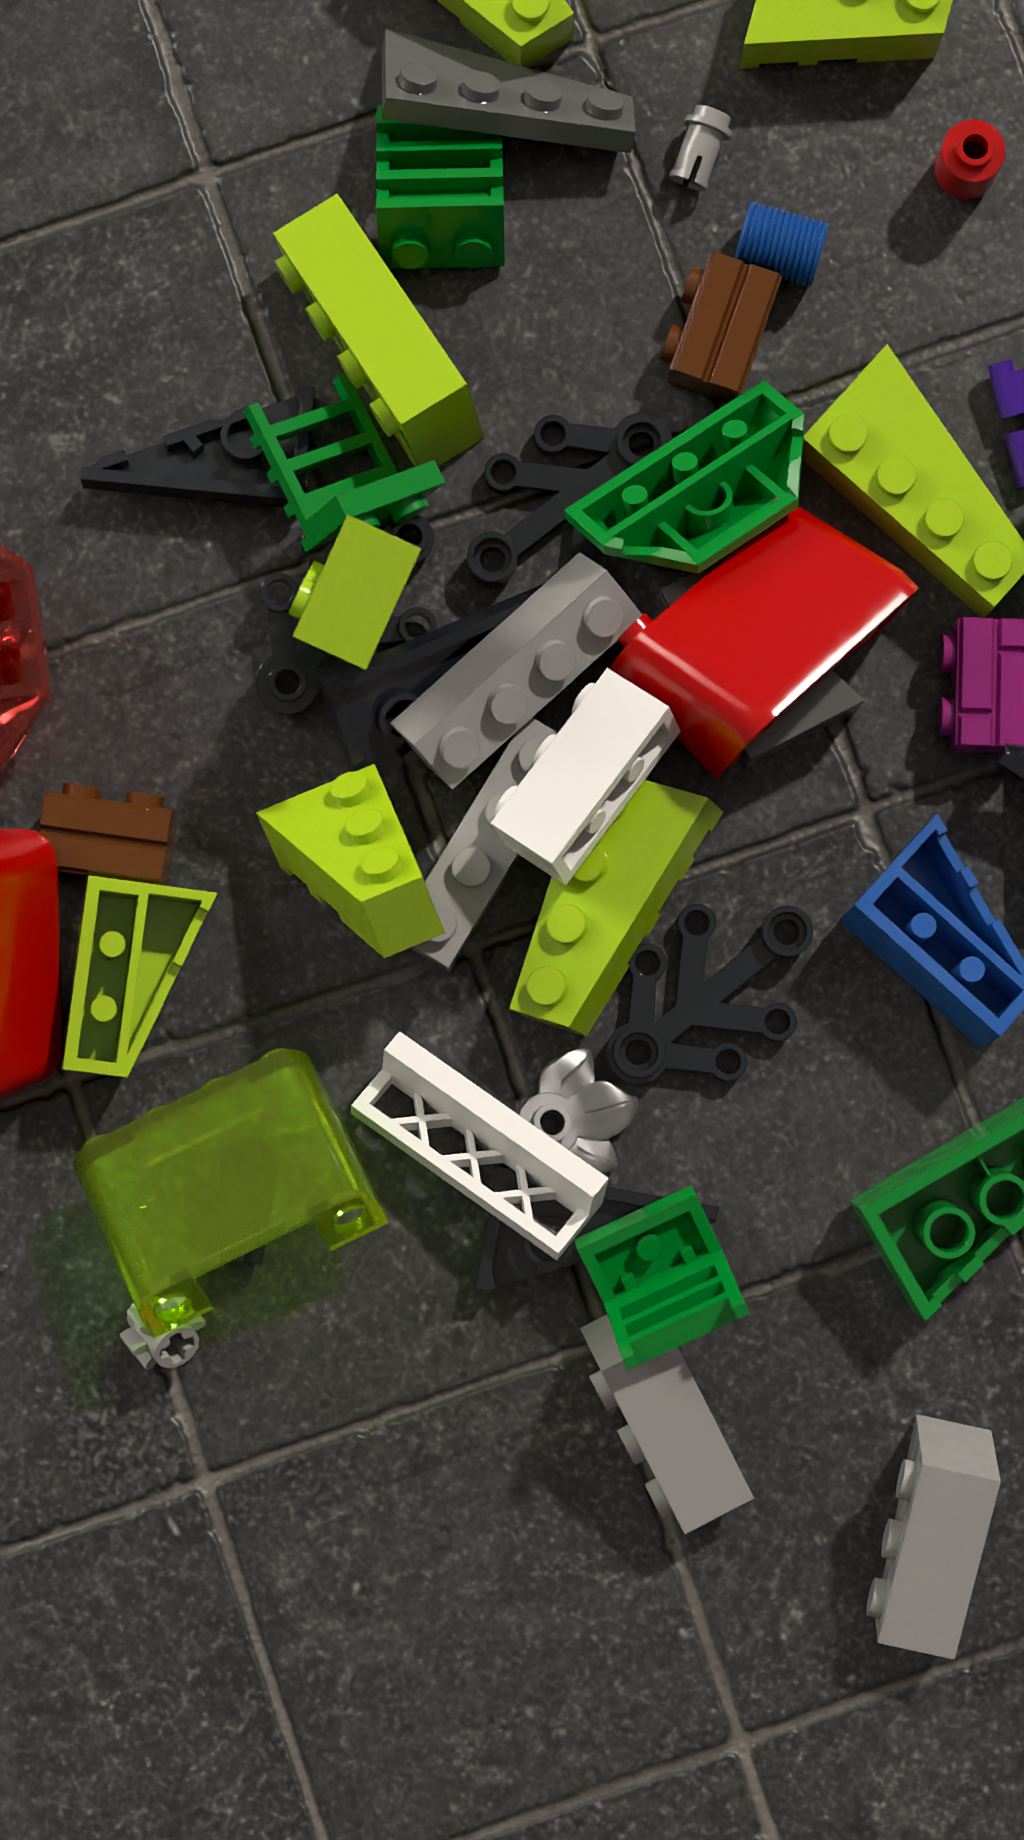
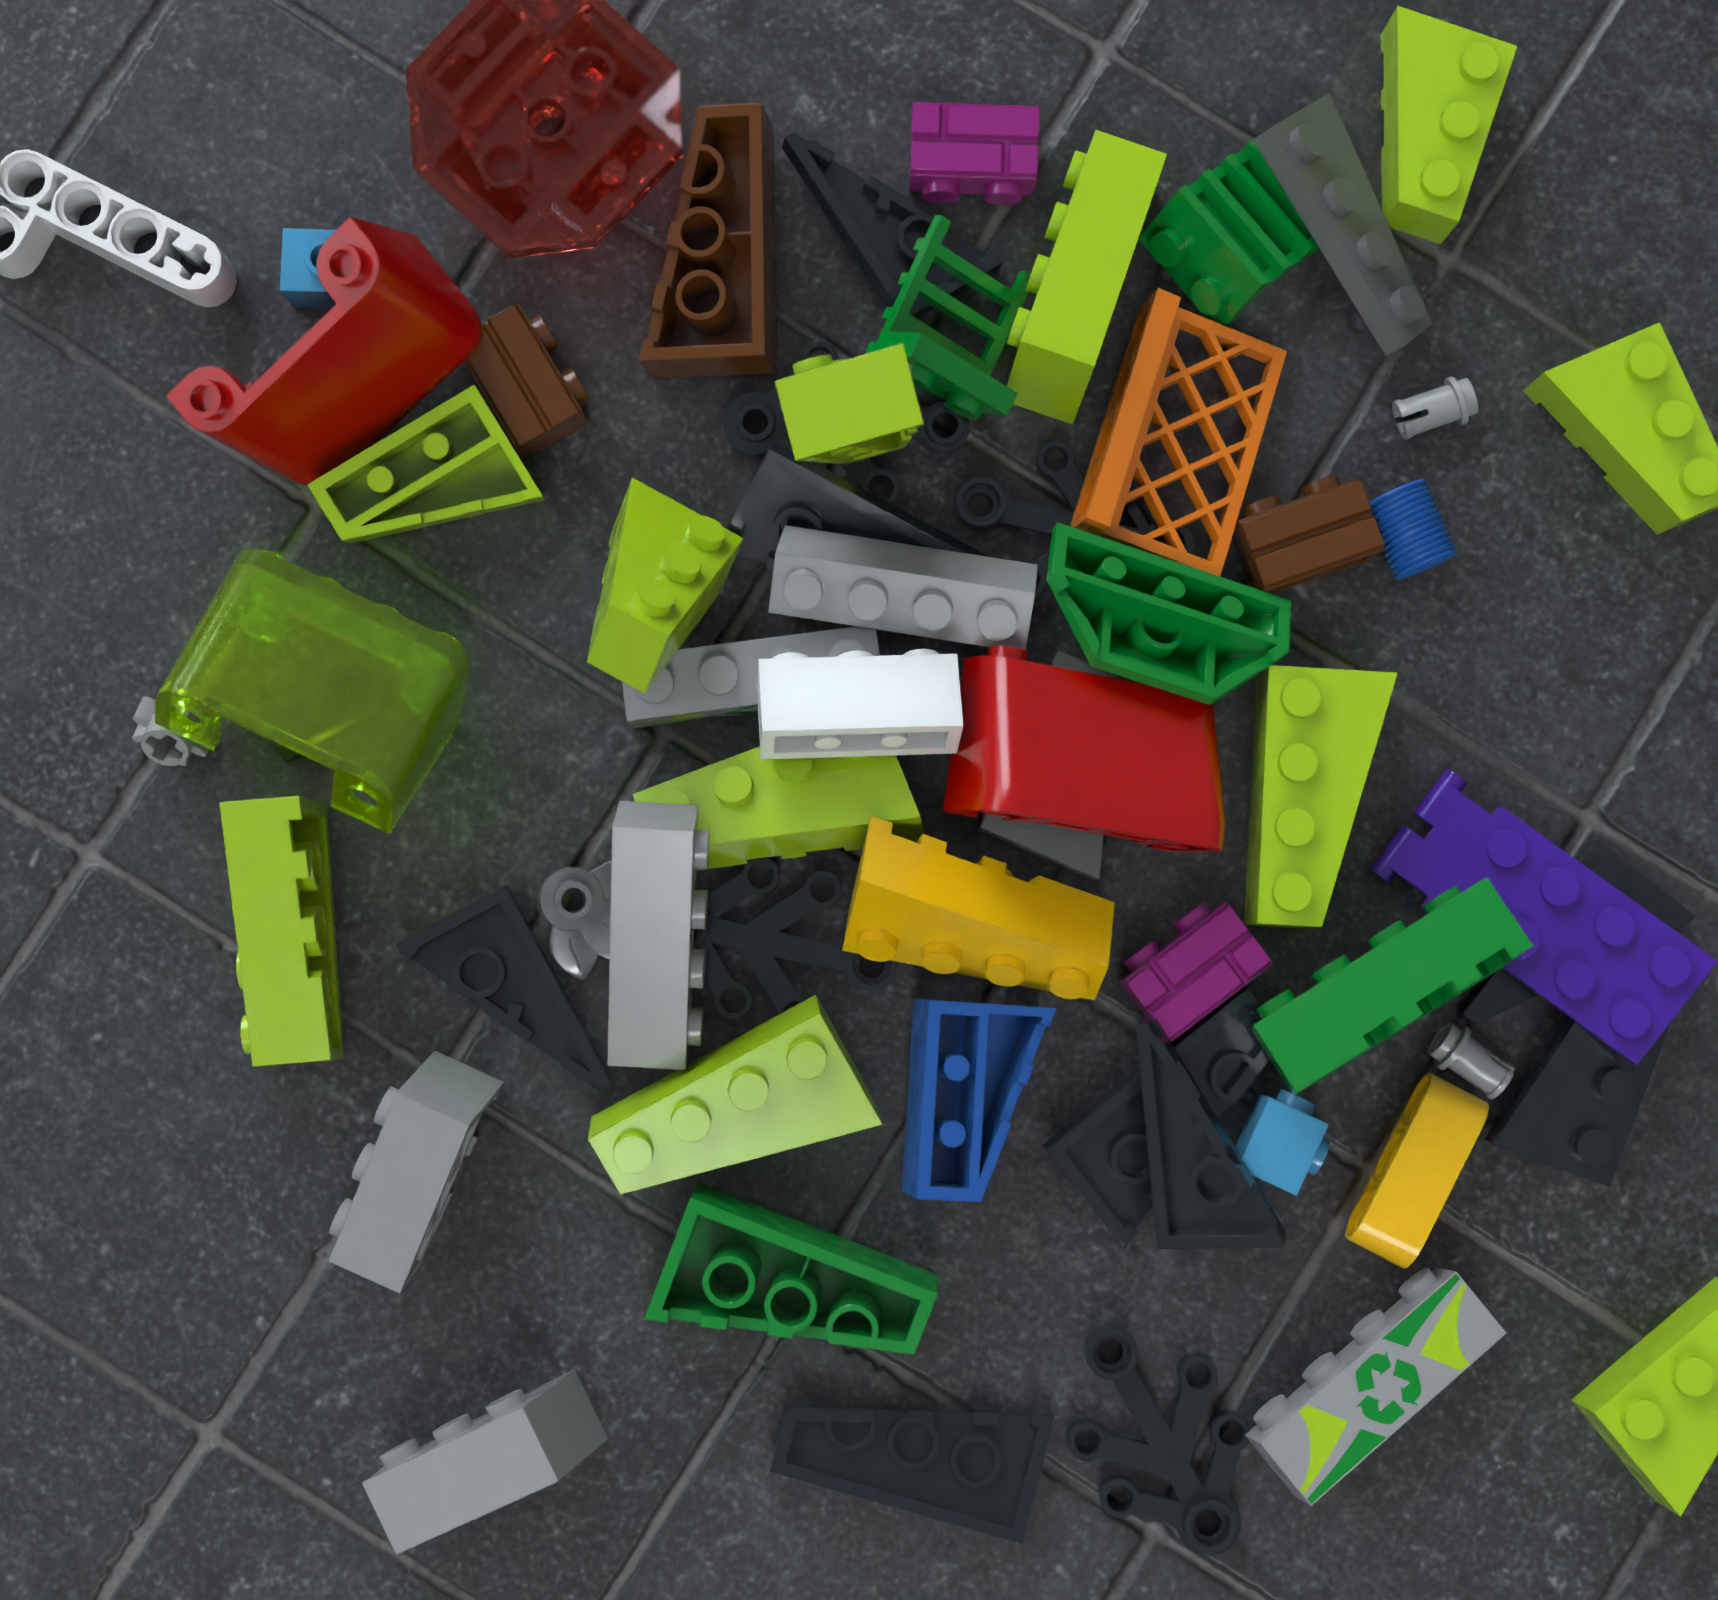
camera: 45 degrees right, 0 degrees up
(148, 616) = (719, 270): none -> reddish brown wedge
(209, 341) = (973, 151): none -> magenta brick
(397, 1368) = (284, 929): none -> lime wedge
(492, 1127) = (531, 858): white fence -> none
(514, 378) = (1135, 405): none -> orange fence
(634, 1077) = (653, 934): none -> light grey brick
(661, 1277) = (512, 1083): green plate -> none
(812, 1118) = (738, 1103): none -> lime wedge
(816, 821) = (975, 918): none -> yellow wedge
(966, 176) = (1581, 625): red brick -> none

